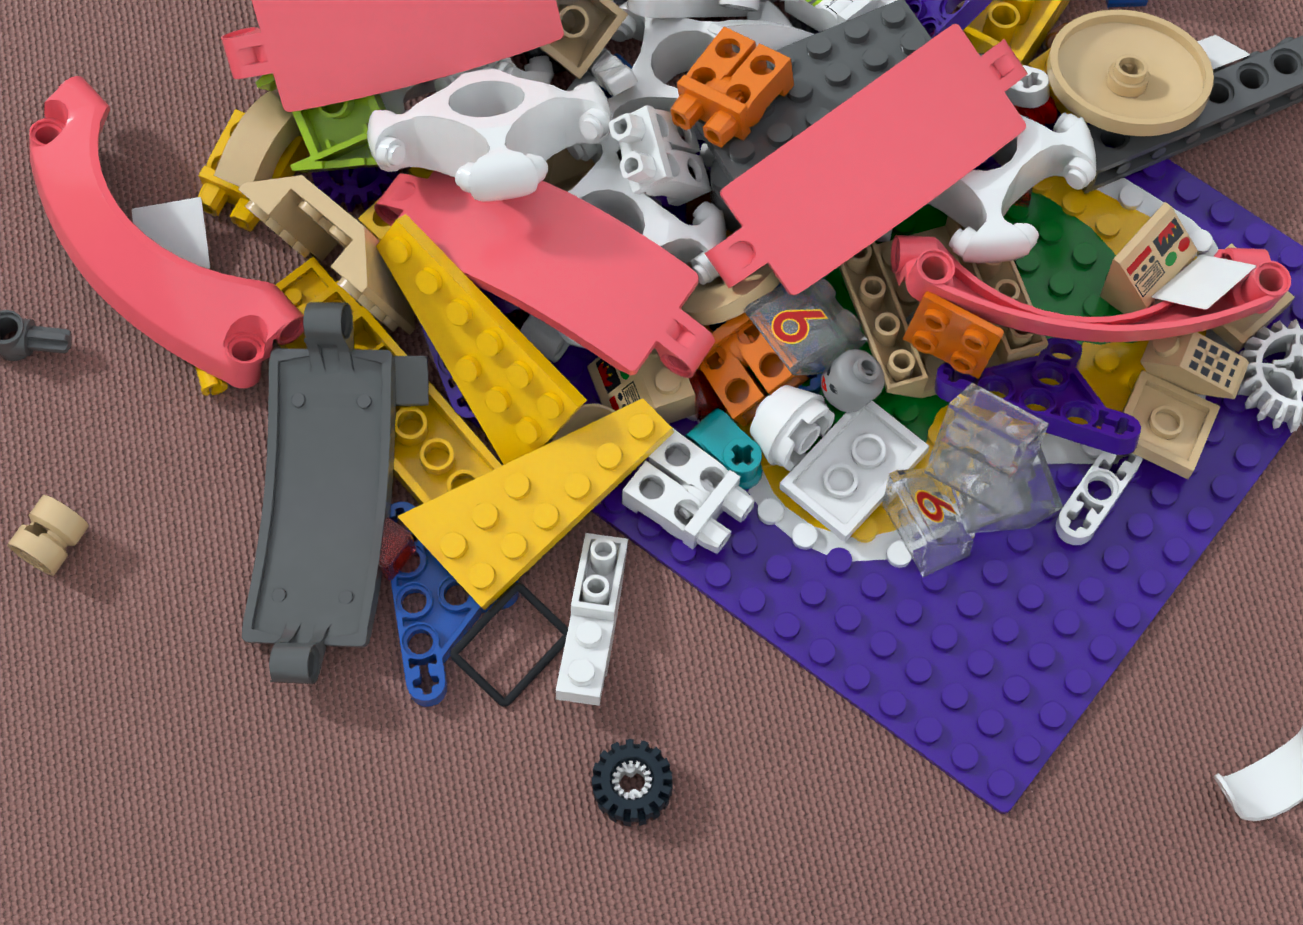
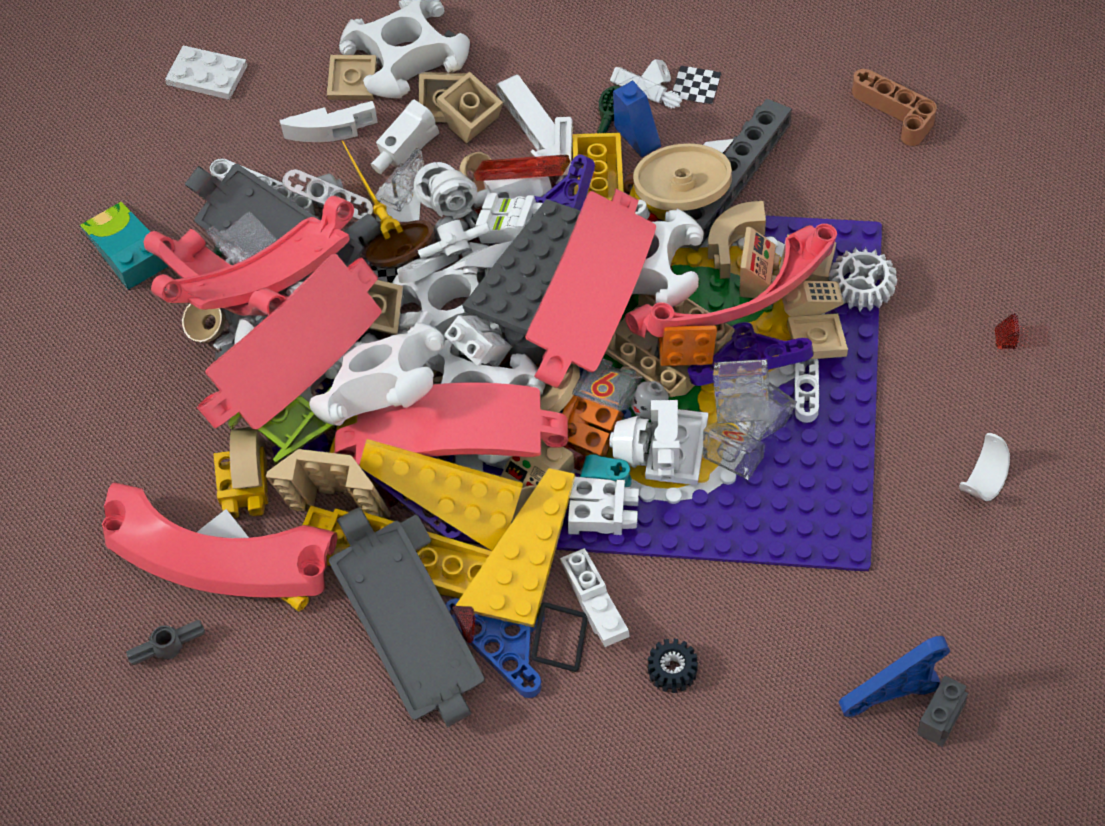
camera: 30 degrees left, 10 degrees down
(47, 536) = (266, 727): tan wheel -> none
(731, 87) = (495, 286): orange hips -> none
(832, 453) = (665, 444): none -> white hips
(1144, 187) = (731, 227): none -> tan arch
(1203, 281) = (791, 255): white sticker -> none

